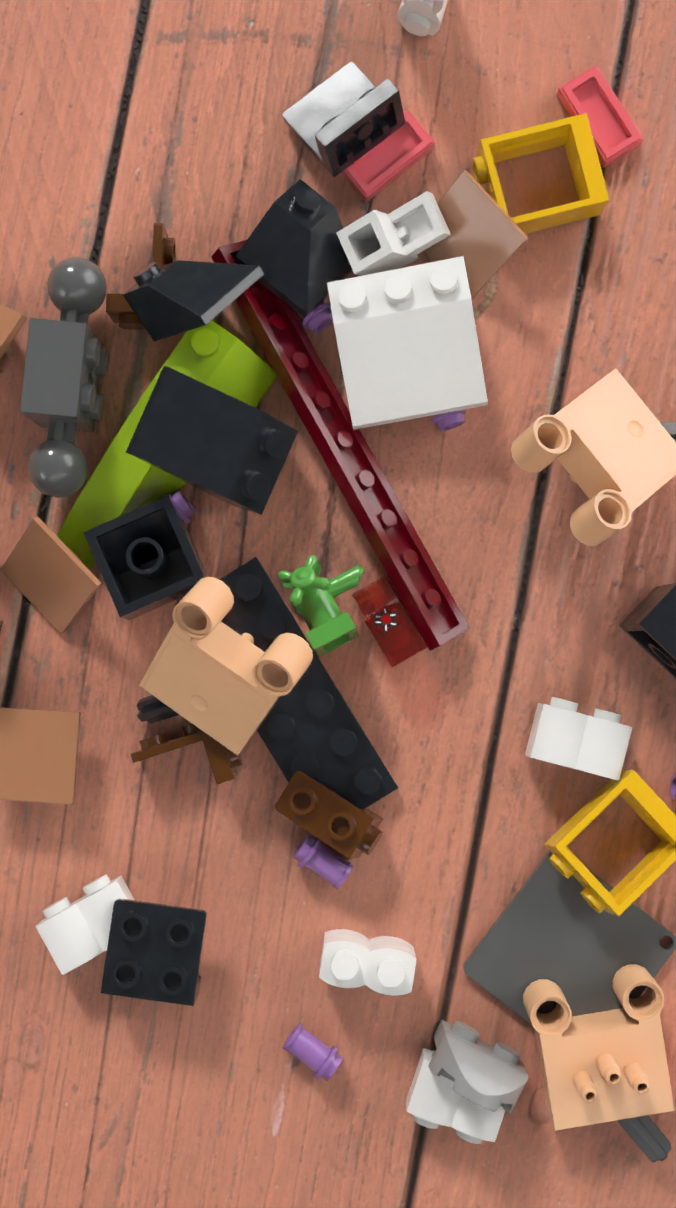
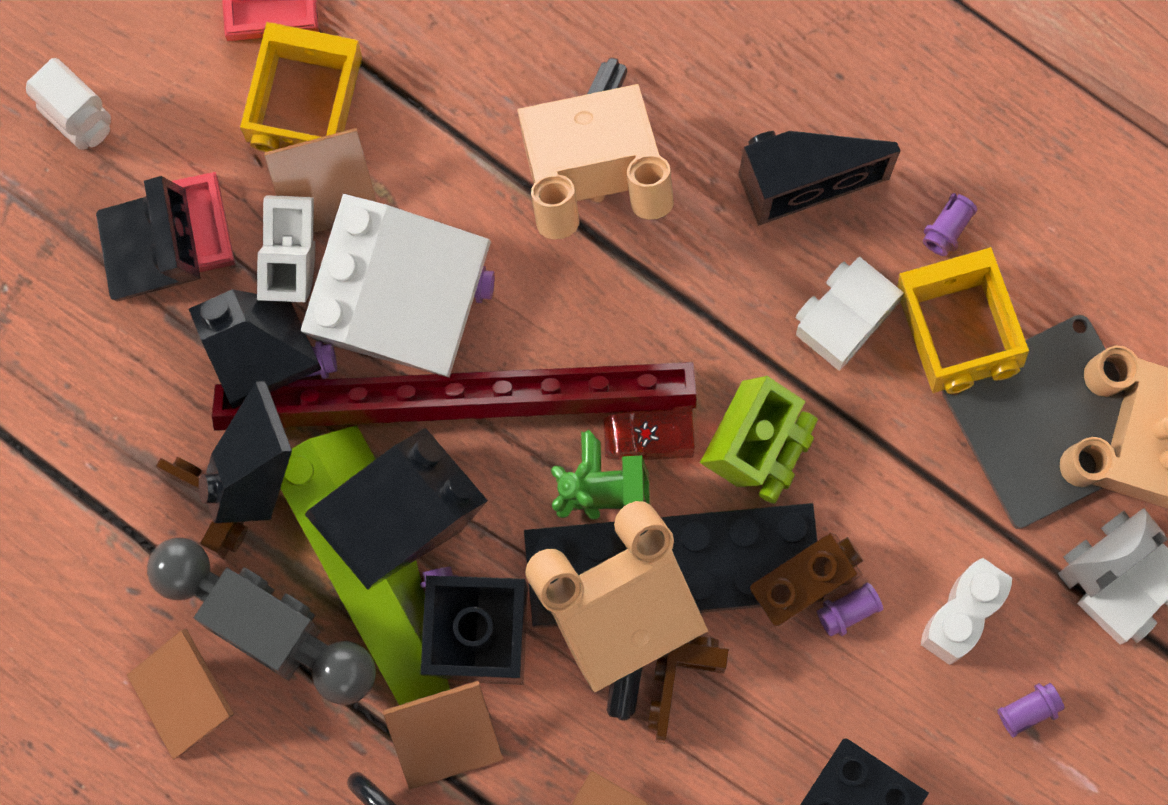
camera: 65 degrees left, 10 degrees down
(431, 717) = (753, 434): none -> lime brick

